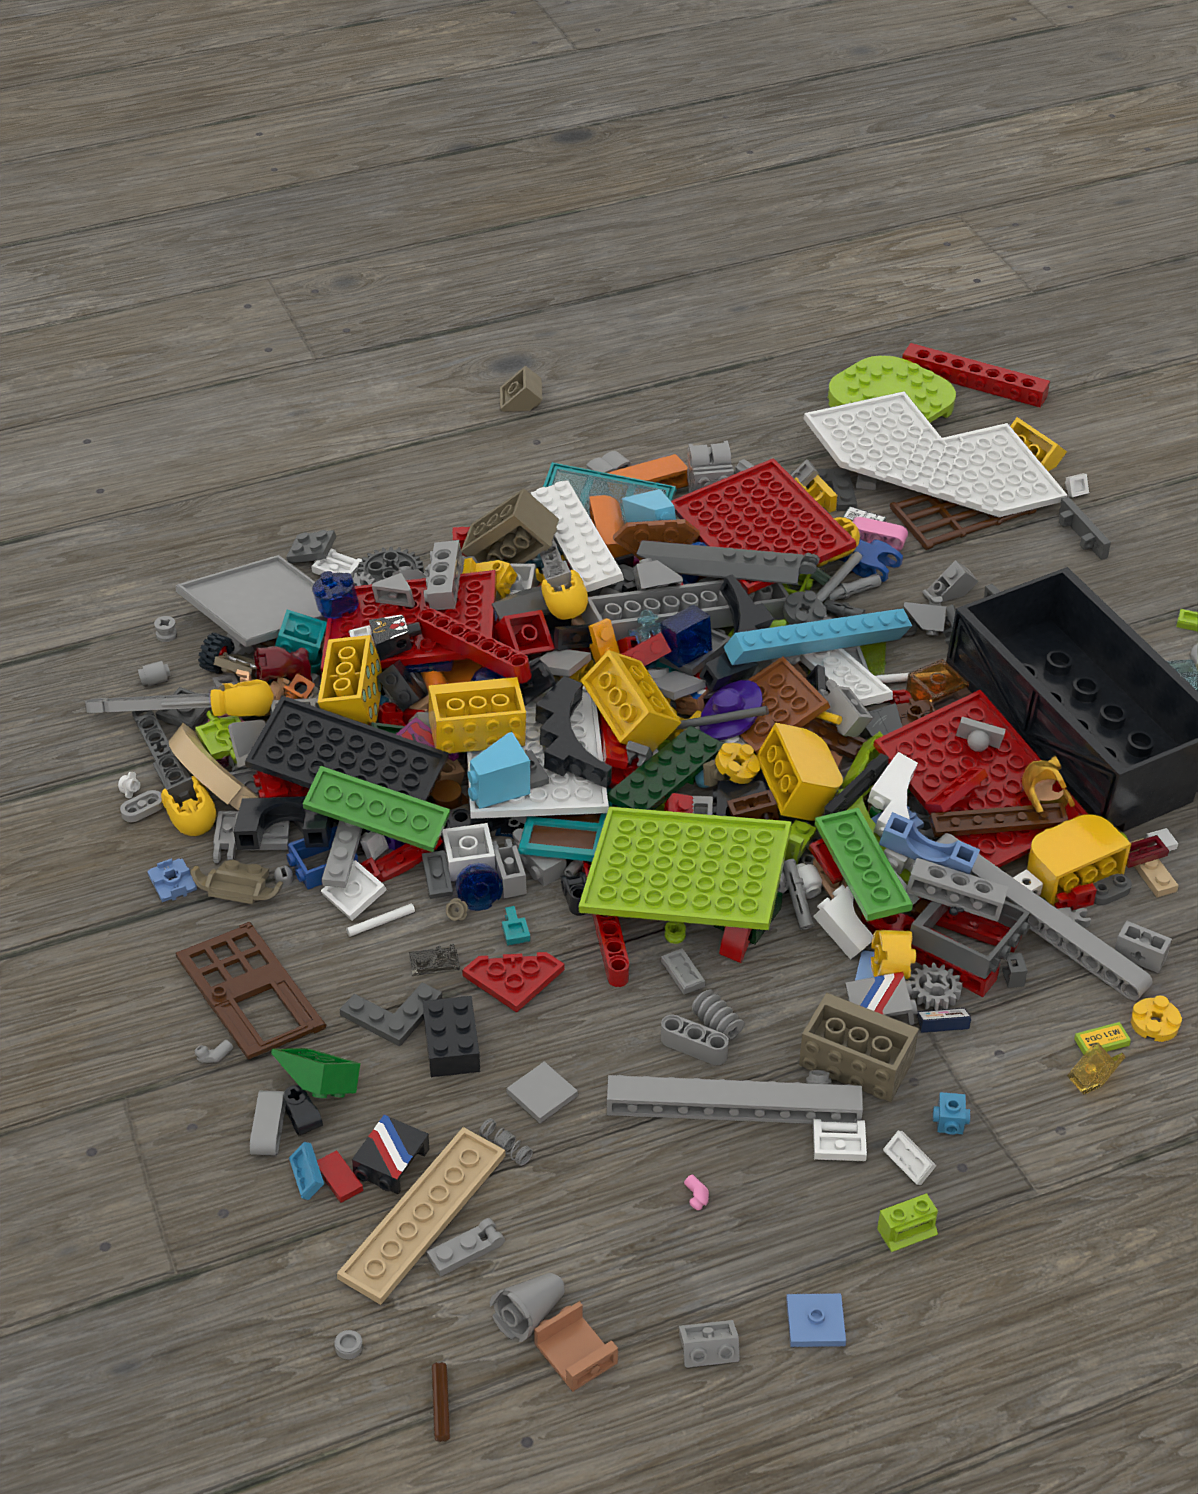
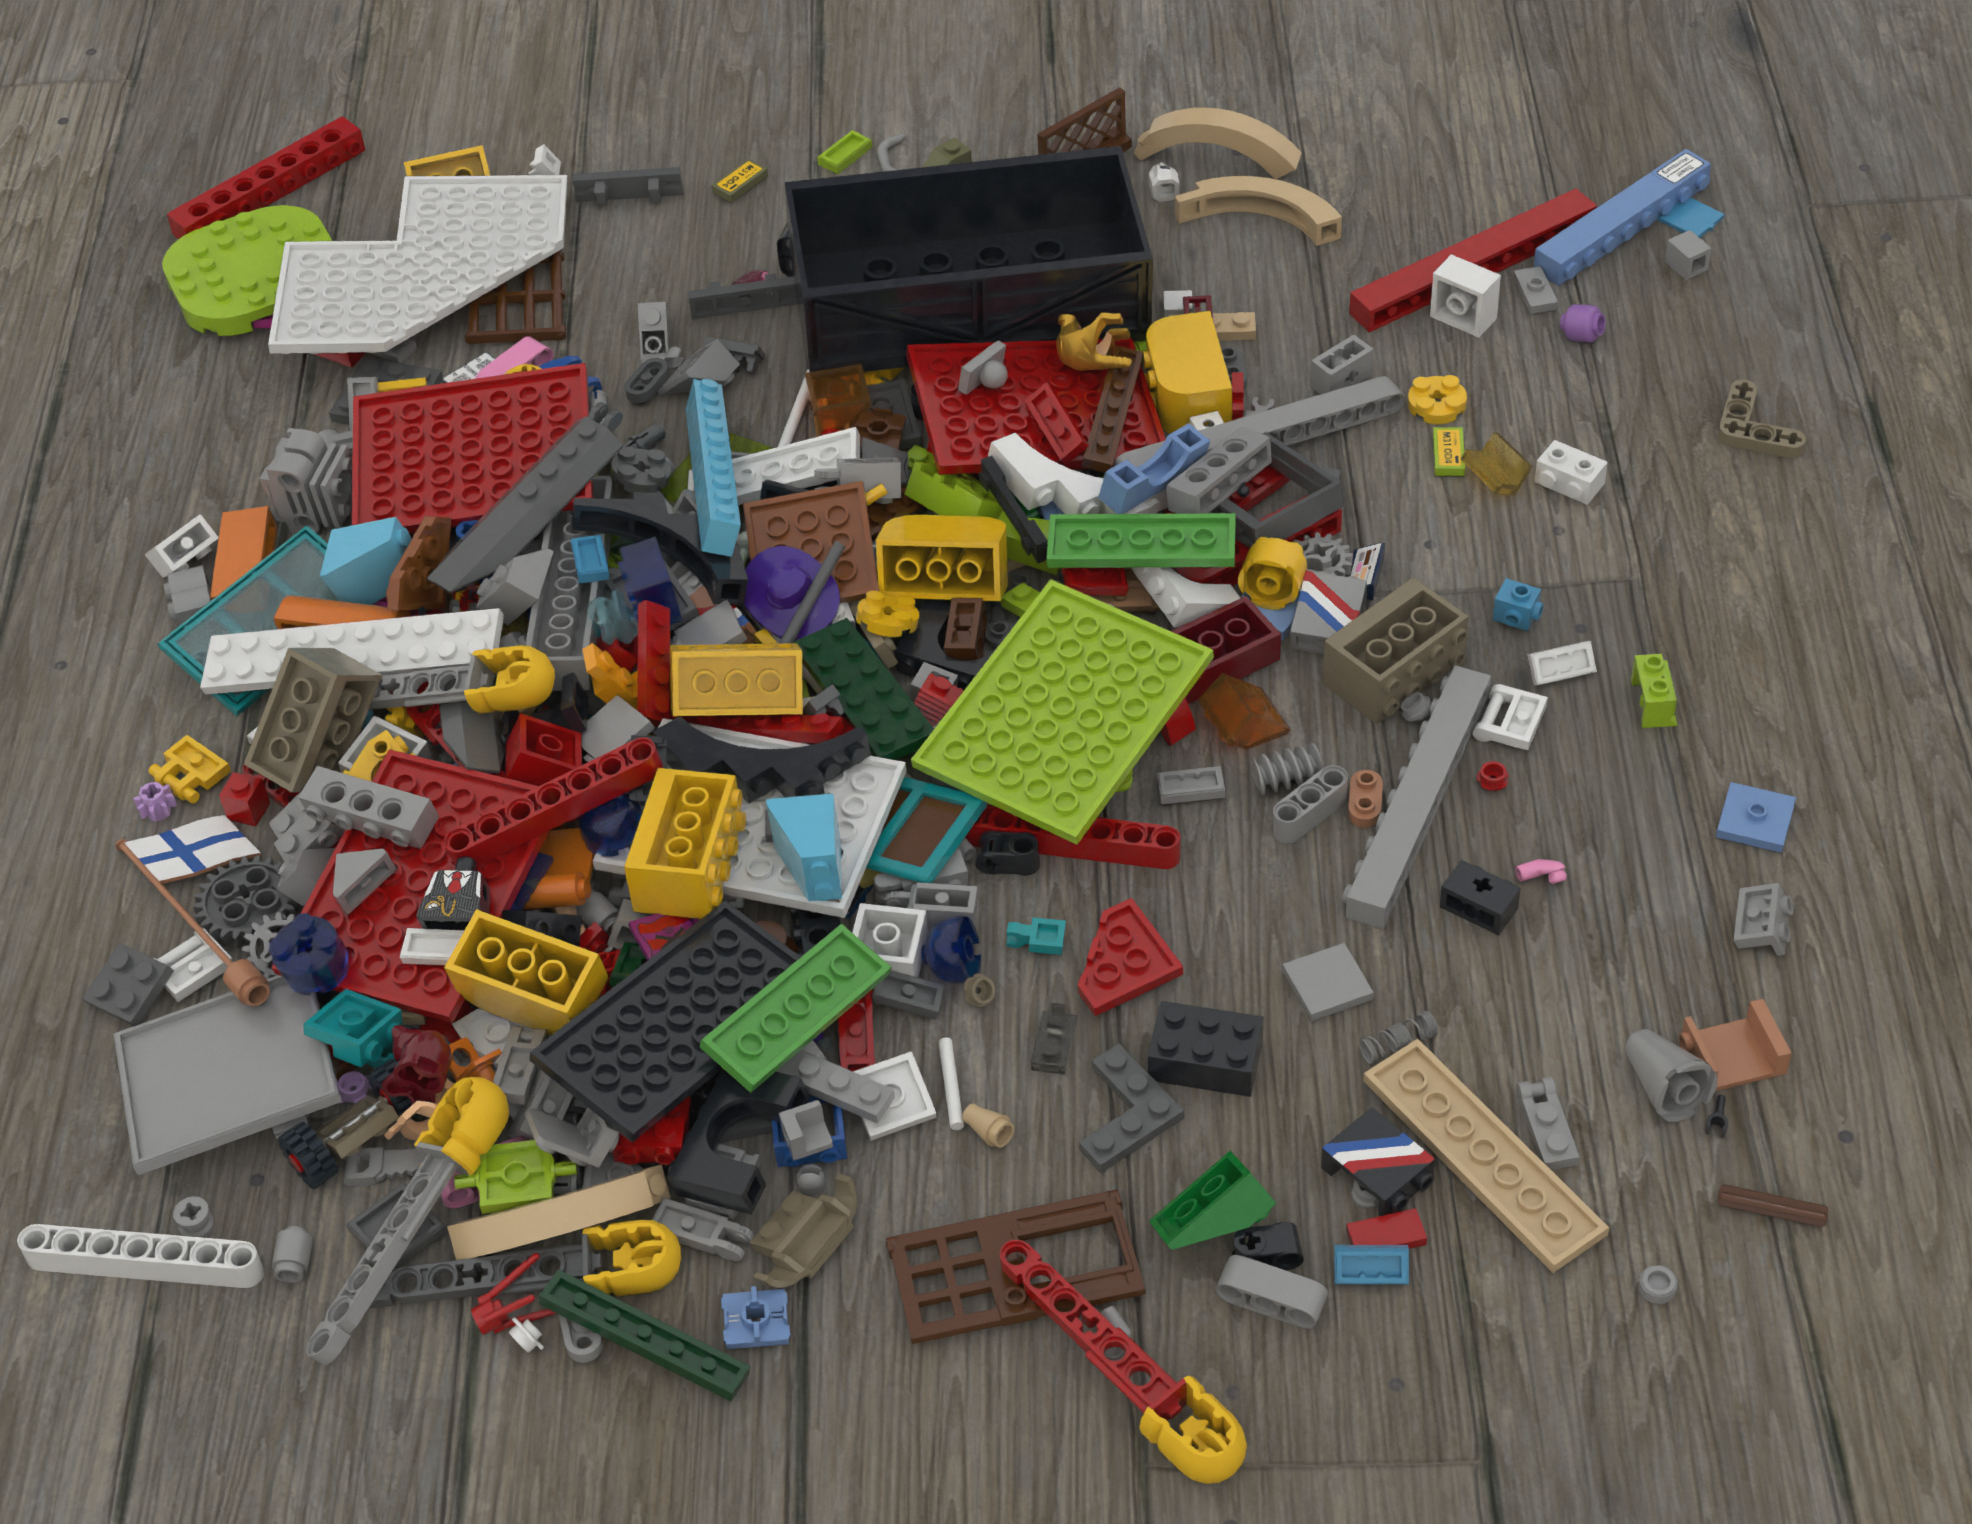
camera: 65 degrees left, 5 degrees up
(133, 616) = (141, 1255): none -> white beam
(136, 1115) = (1218, 1449): none -> piece
(138, 764) = (492, 1314): none -> red plant
(138, 831) = (644, 1335): none -> dark green plate
(297, 849) = (805, 1130): none -> light grey panel
(350, 946) = (991, 1126): none -> tan cone
(410, 532) = (191, 852): none -> flag
(446, 510) = (155, 801): none -> lavender gear
(478, 509) = (196, 762): none -> yellow plate
(508, 1352) = (1718, 1117): none -> black hand
(640, 448) = (181, 546): none -> white brick
(651, 1158) = (1480, 897): none -> black brick
(705, 601) = (589, 559): none -> dark azure tile
(722, 1070) = (1365, 798): none -> nougat plate
(762, 981) = (1242, 713): none -> clear orange slope
(777, 1137) = (1493, 776): none -> red plate
(806, 946) = (1239, 639): none -> dark red brick
(899, 594) = (647, 380): none -> dark grey plate
(1119, 1118) = (1570, 472): none -> white brick
(1131, 580) = (739, 180): none -> tile

